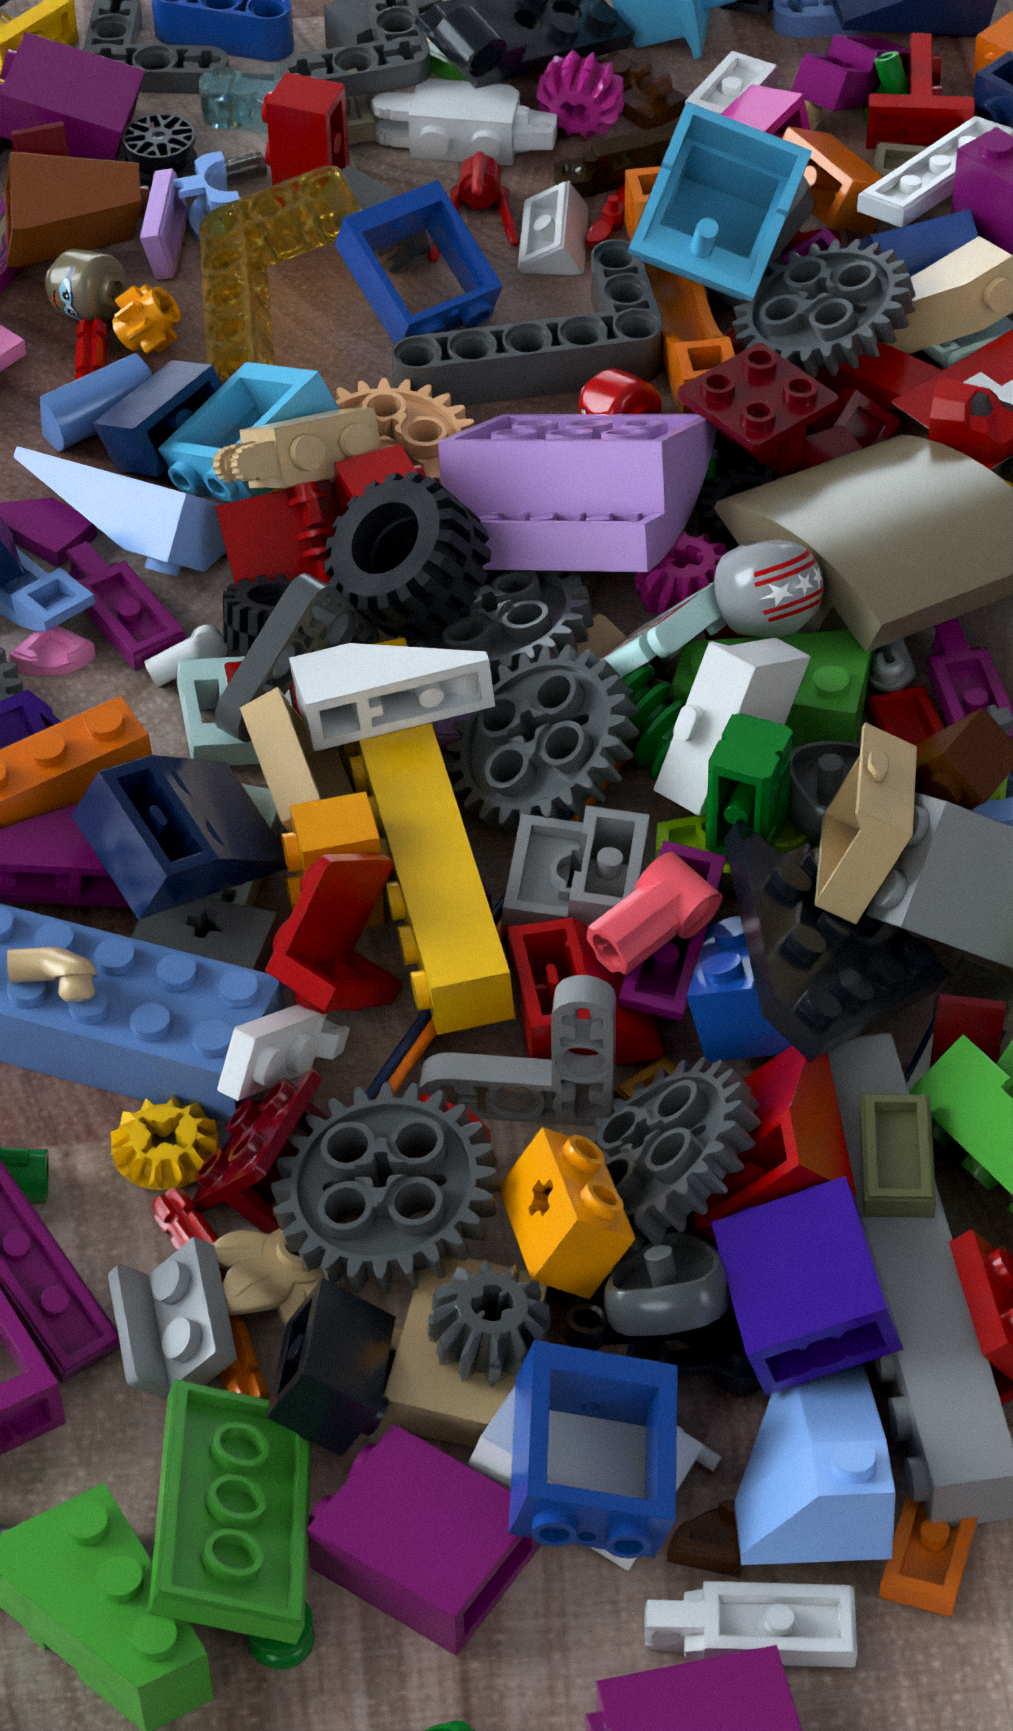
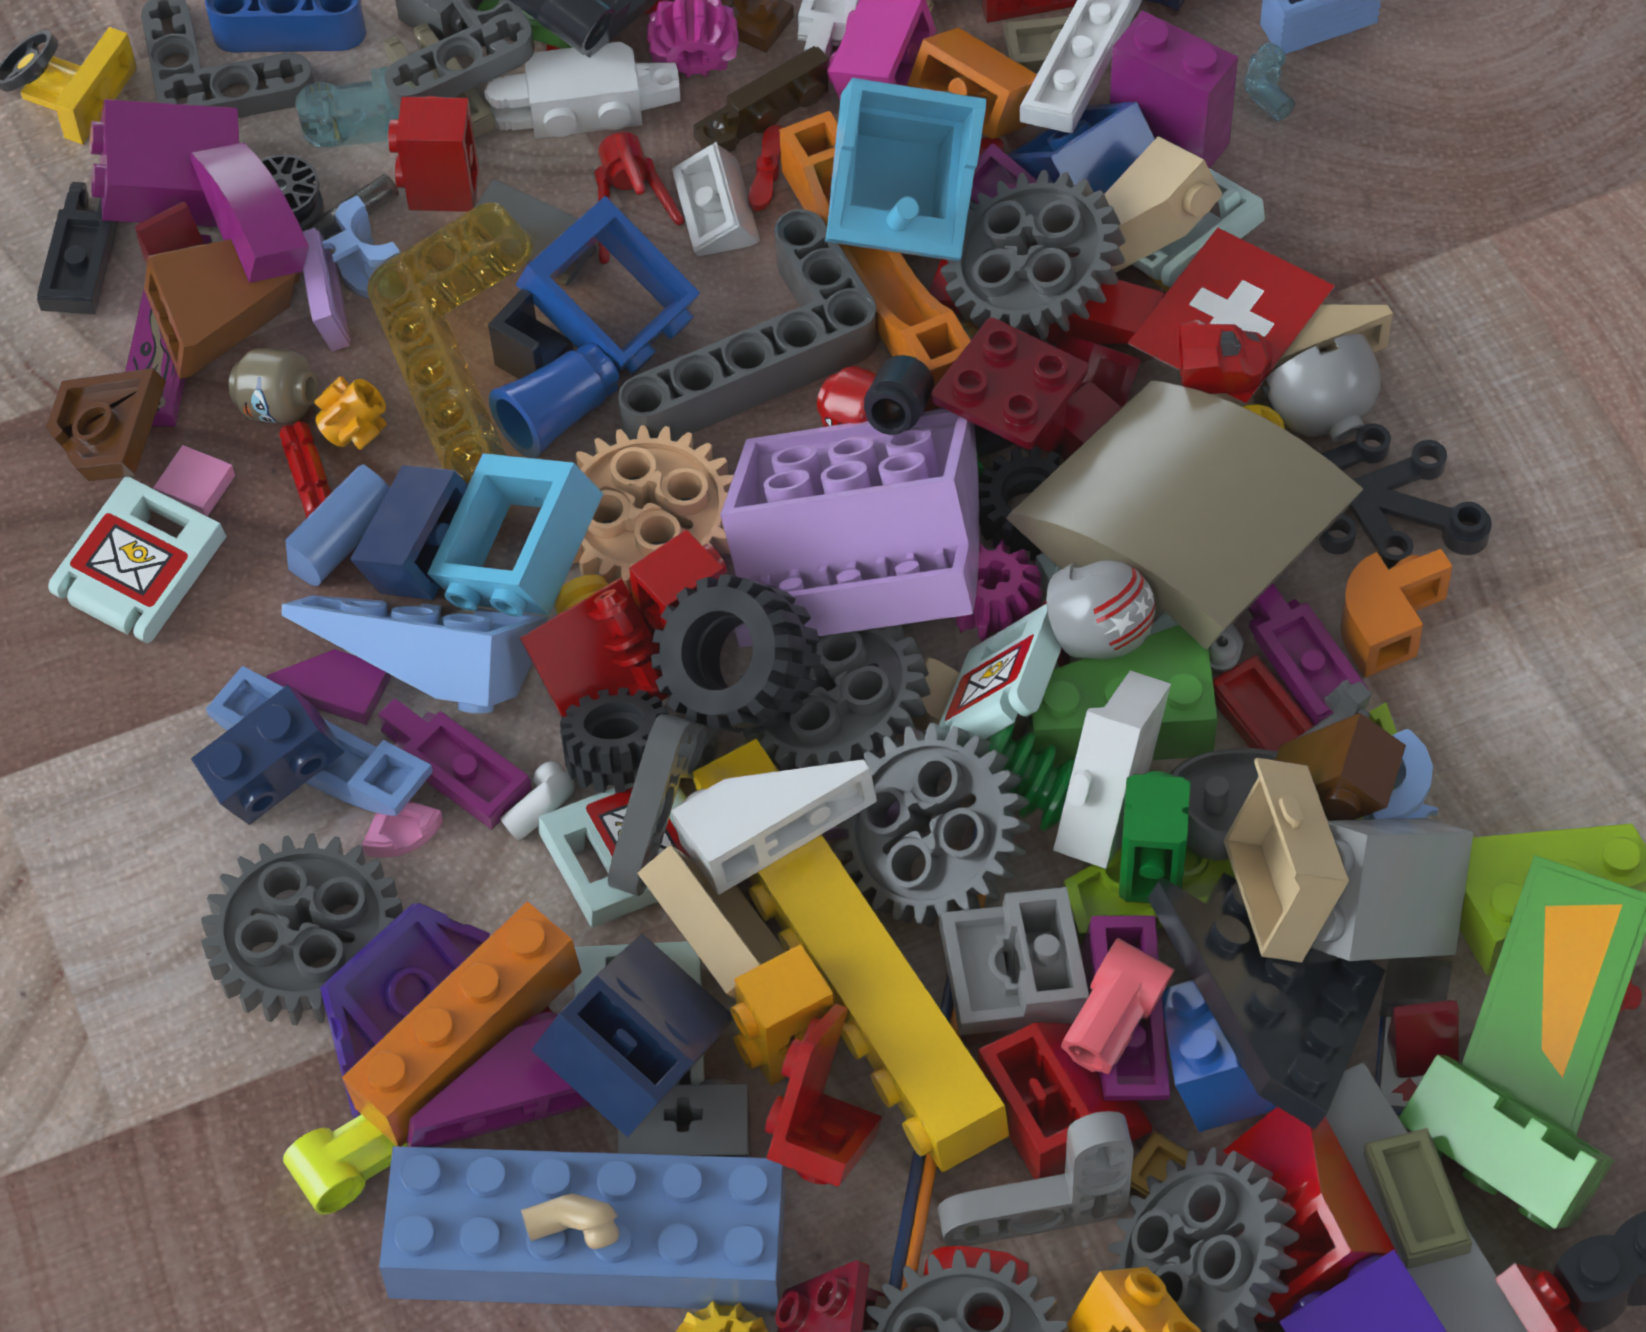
camera: 15 degrees left, 10 degrees up
(118, 143) = (251, 211): none -> magenta slope
(278, 1048) = (805, 1237): white hinge -> none
(298, 448) = (587, 554): tan hinge -> none
(327, 301) = (521, 341): none -> black panel
(338, 340) = (553, 398): none -> blue plant
(647, 387) = (898, 394): none -> black brick

